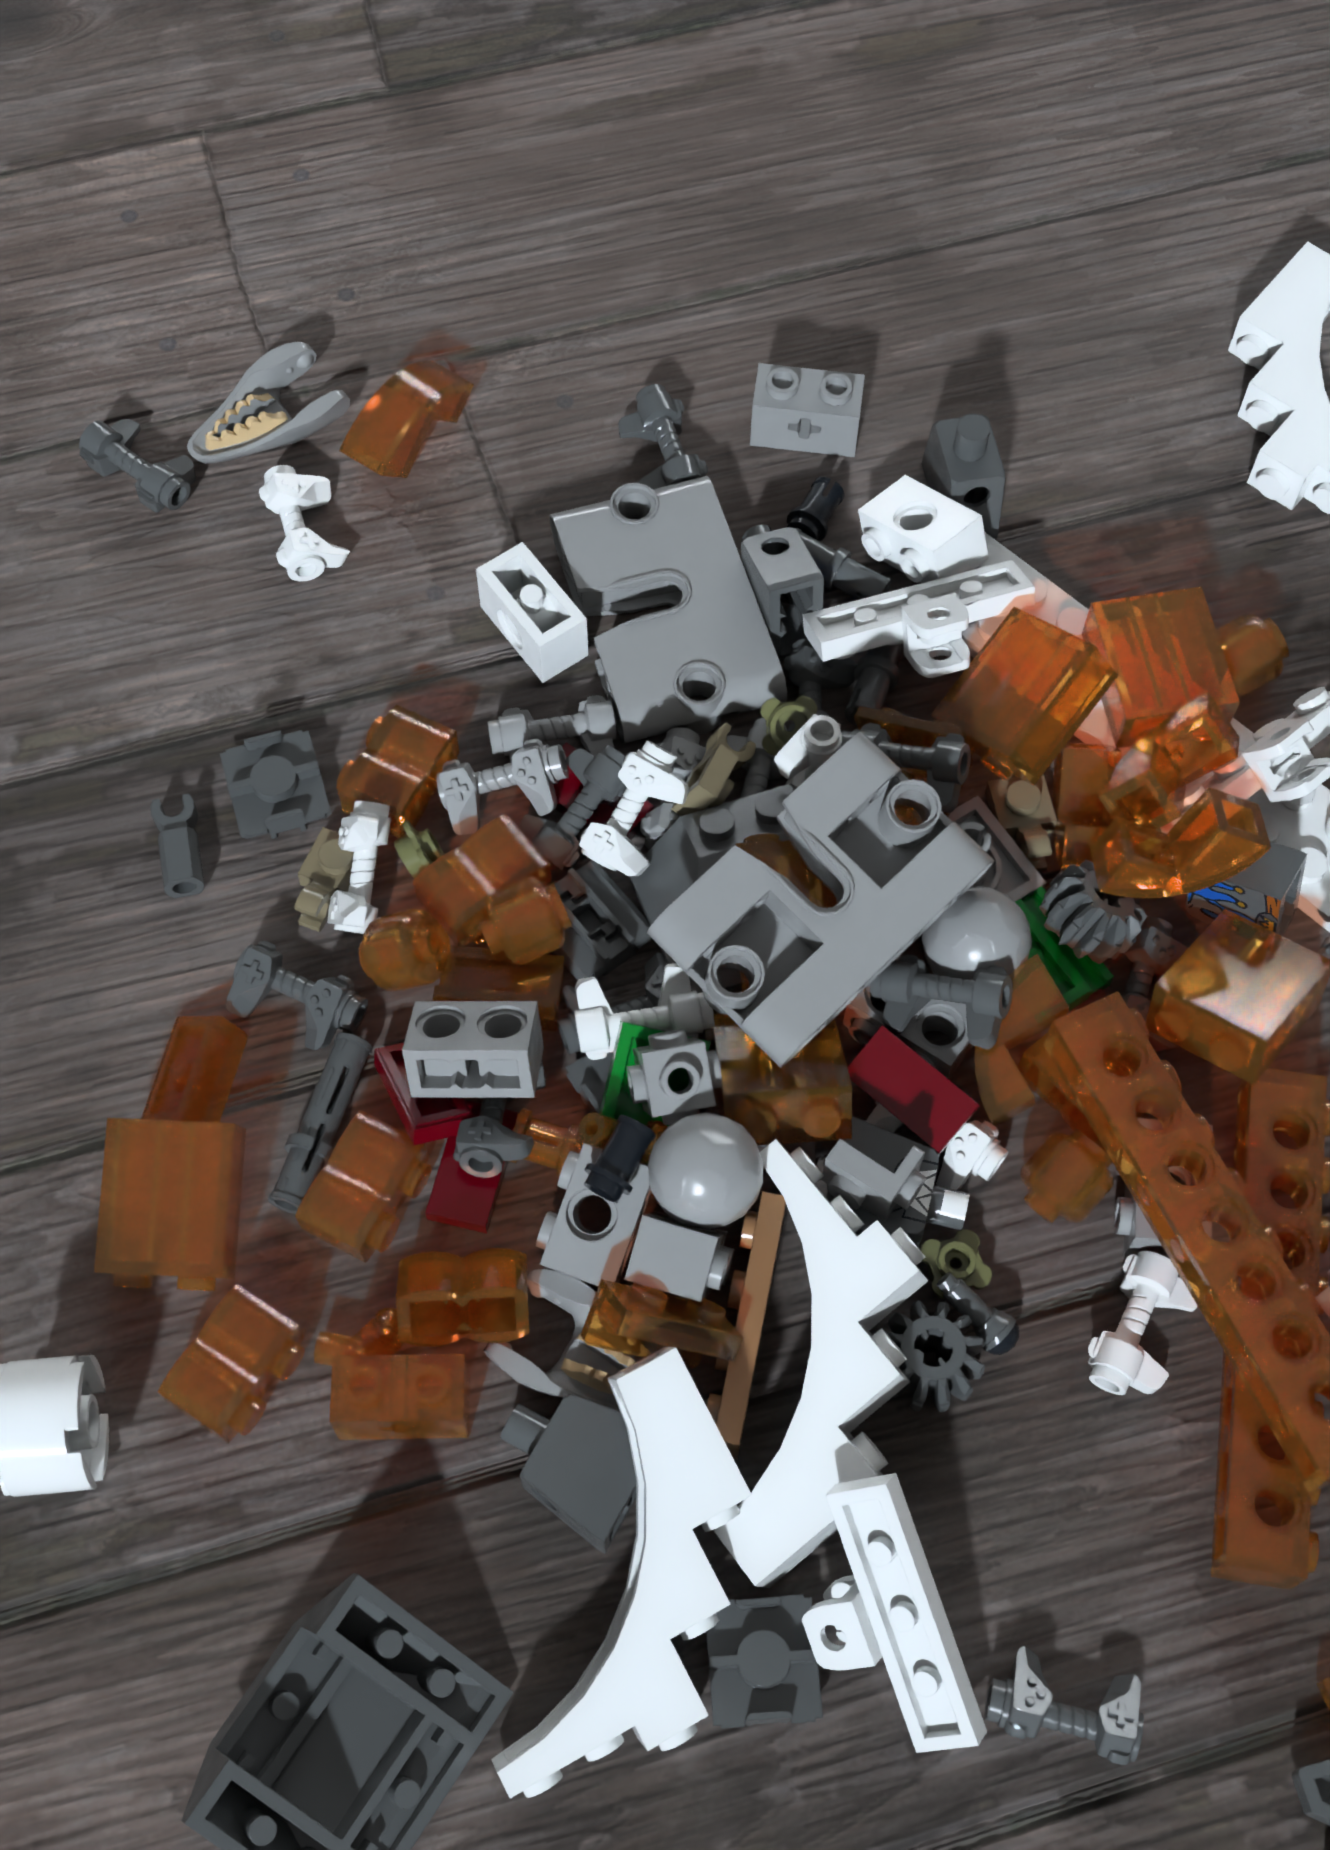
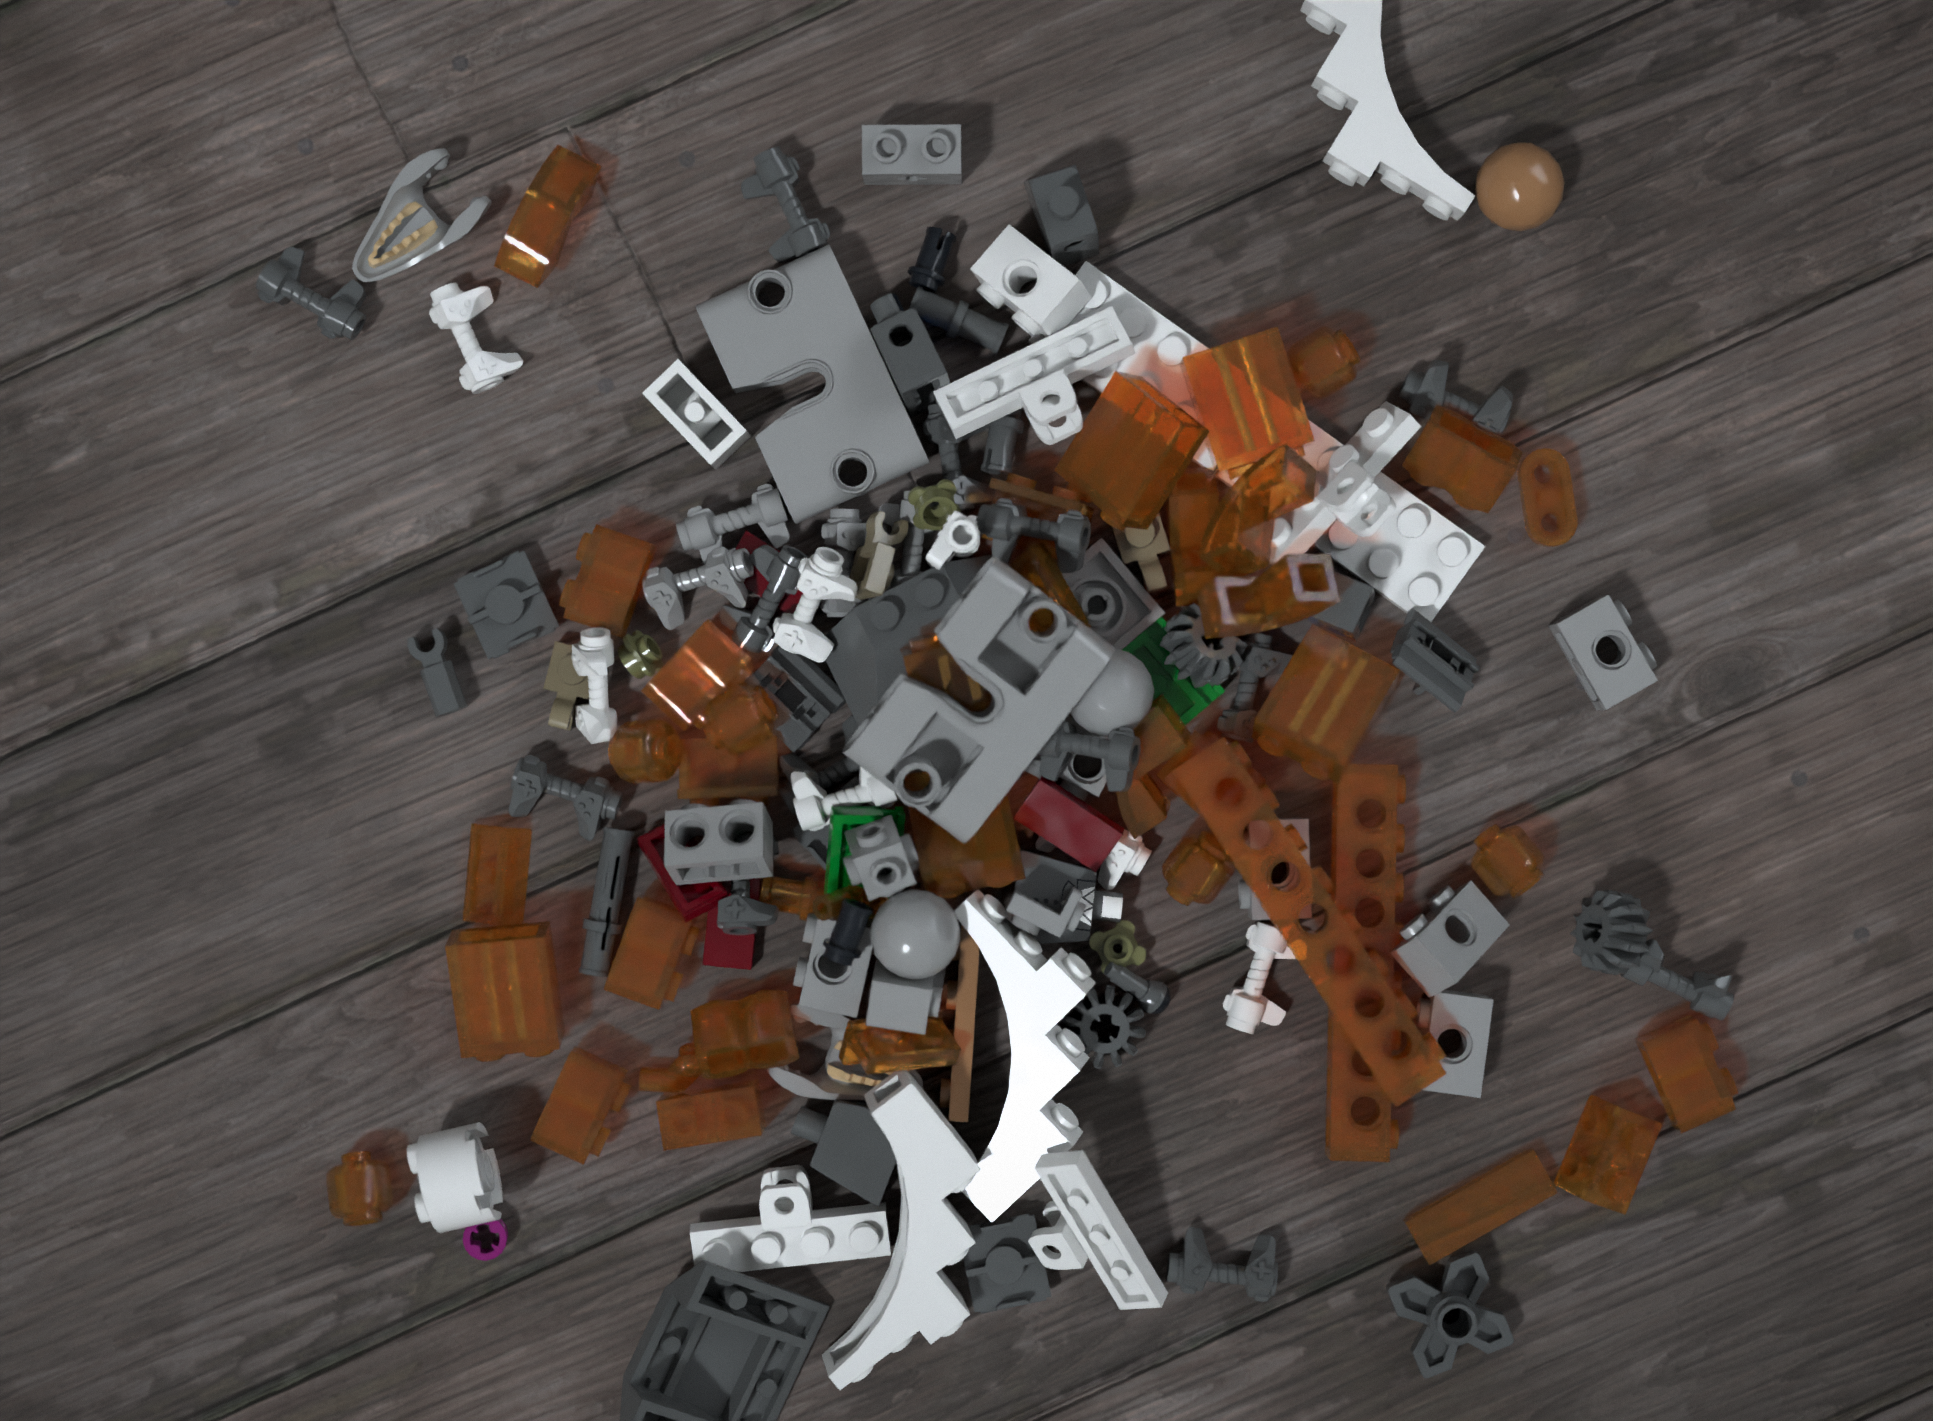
camera: 10 degrees left, 25 degrees up
(53, 1541) = (474, 1247): none -> magenta bush
(481, 1577) = (791, 1231): none -> white plate

